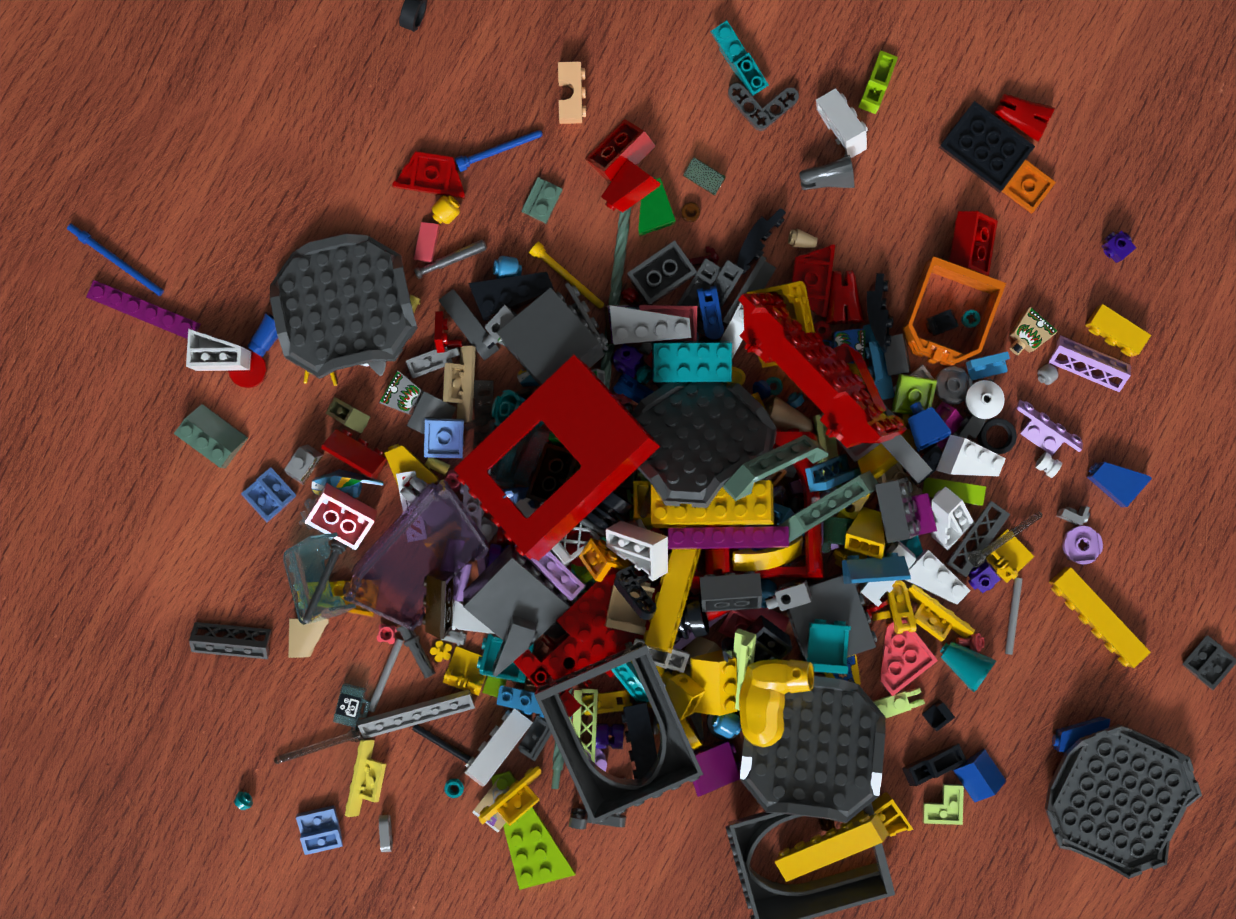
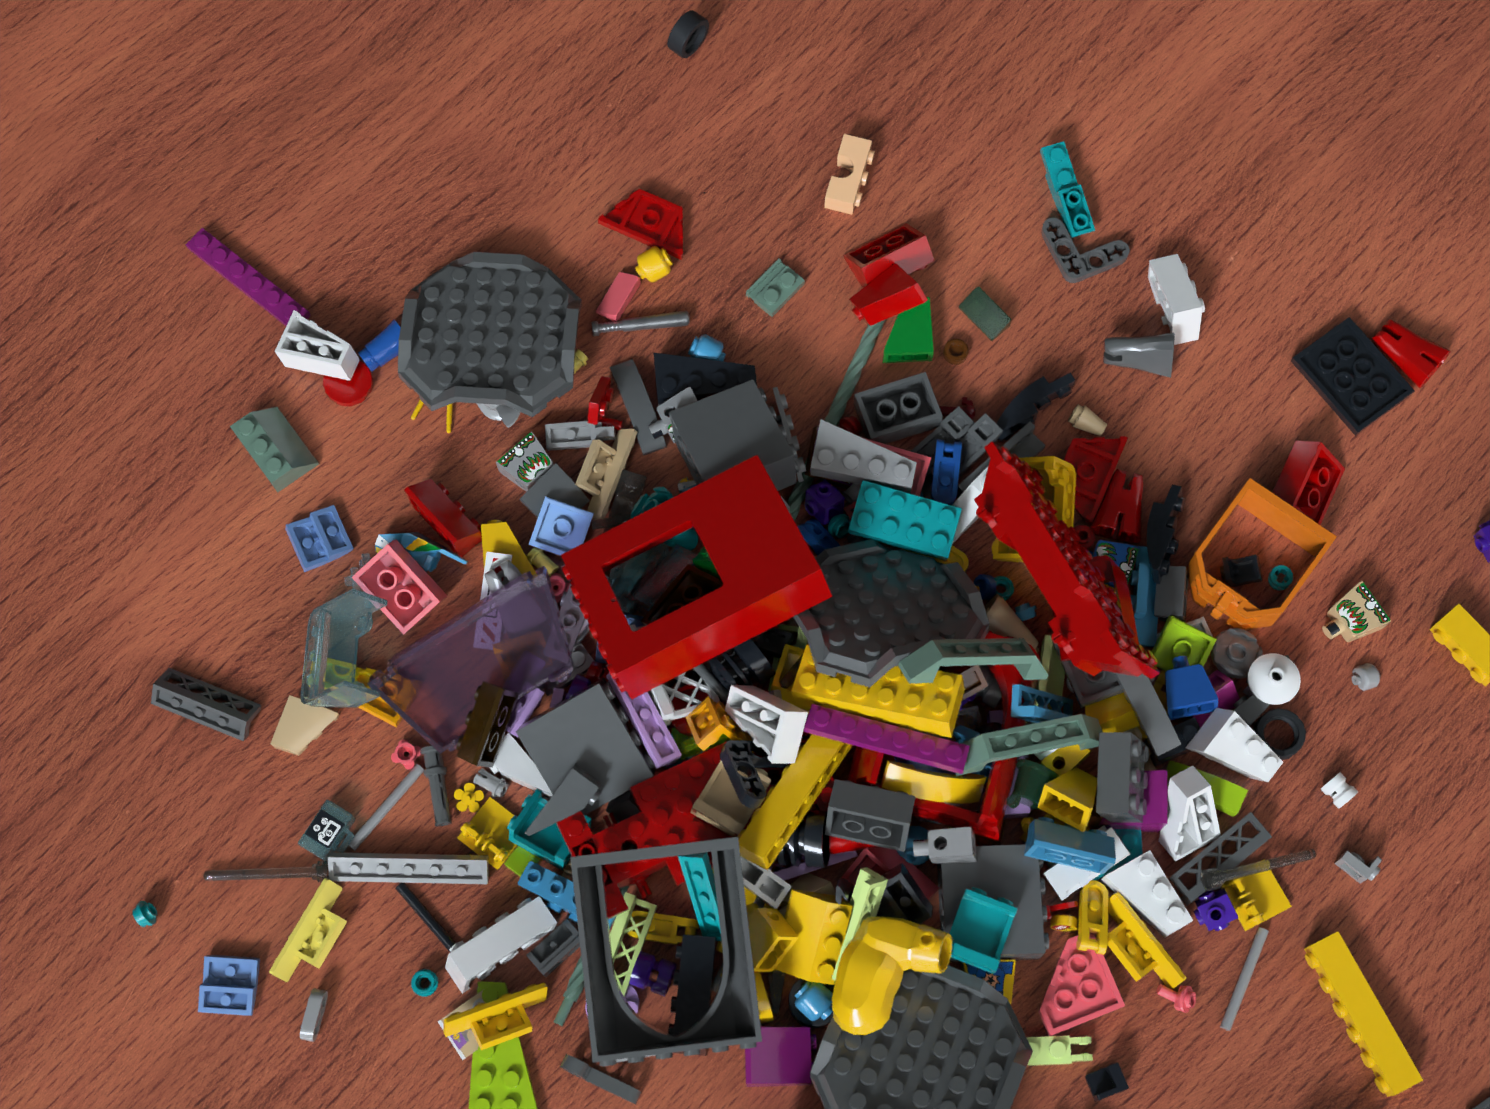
camera: 20 degrees right, 15 degrees down
(85, 238) = (212, 180): blue bar -> none
(303, 463) = (374, 511): light grey torso -> none
(337, 548) = (381, 626): dark grey piece -> none
(348, 415) = (452, 469): olive slope -> none
(464, 162) = (694, 217): blue piece -> none
(539, 252) = (752, 343): yellow piece -> none
(878, 82) = (1232, 264): lime slope -> none
(967, 664) = (1165, 1022): teal cone -> none
(987, 366) = (1288, 639): dark azure bracket -> none
(1028, 186) = (1394, 437): orange plate -> none
(1045, 432) = (1344, 748): lavender bracket -> none
(1090, 552) = (1372, 900): lavender plate -> none
(1093, 358) = (1432, 672): lavender fence -> none
(1118, 482) = (1428, 839): blue slope -> none

